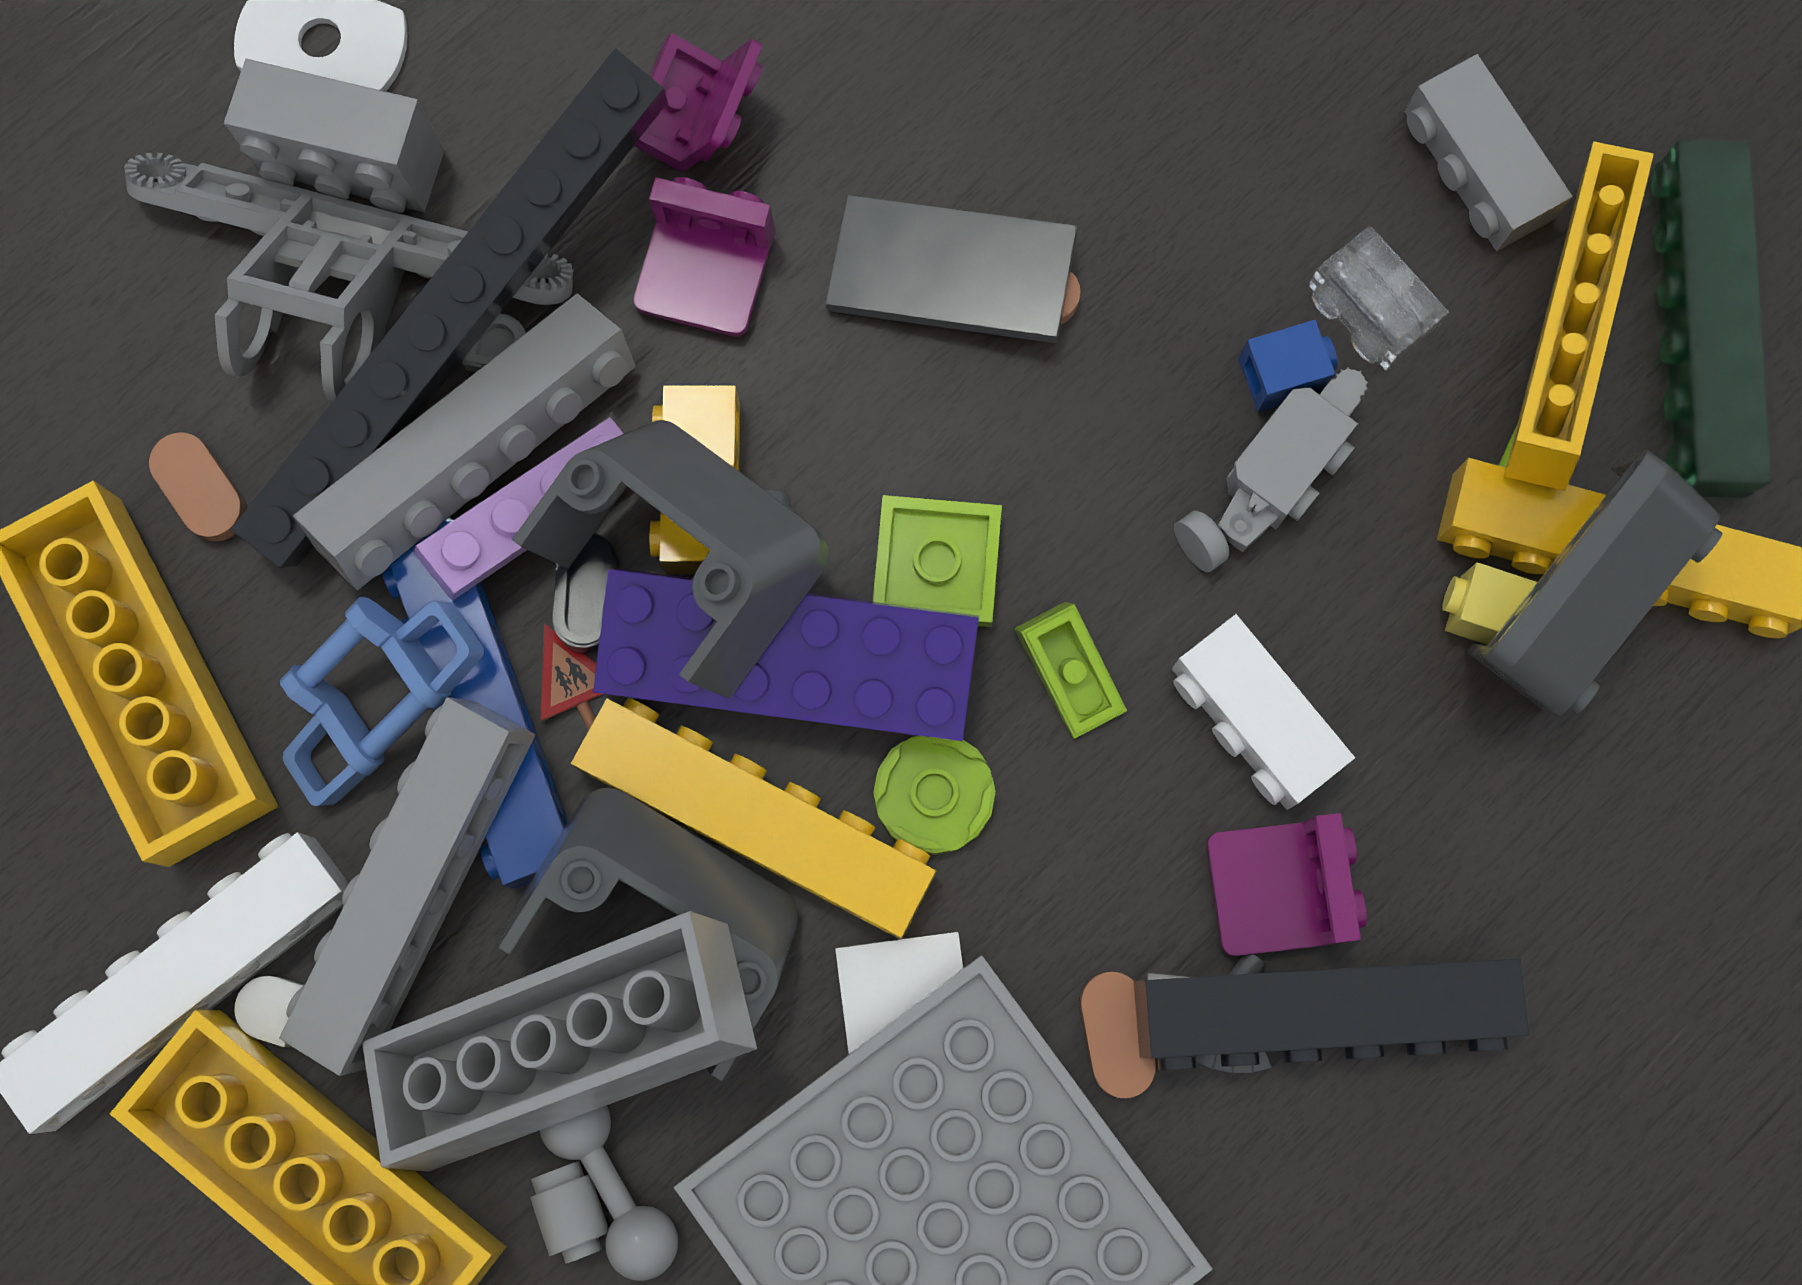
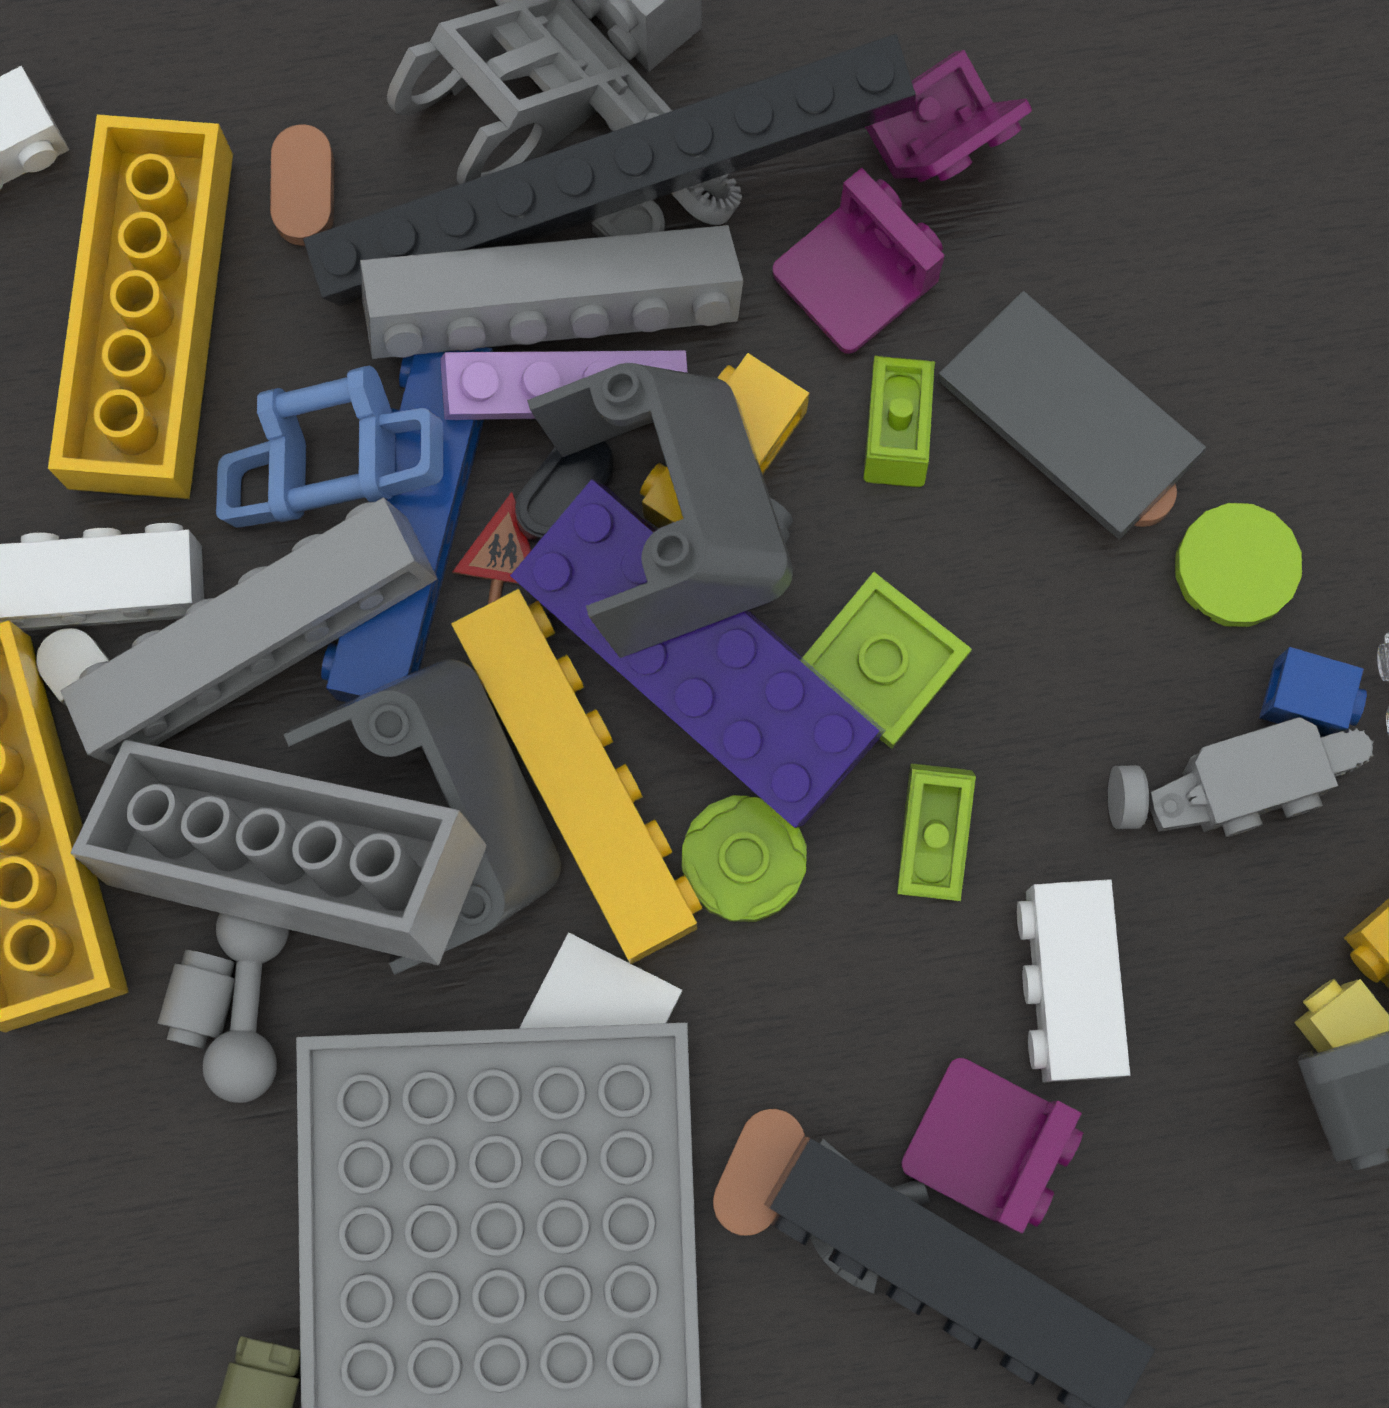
camera: 35 degrees right, 0 degrees up
(820, 363) = (899, 421): none -> lime slope
(1161, 302) = (1238, 564): none -> lime tile

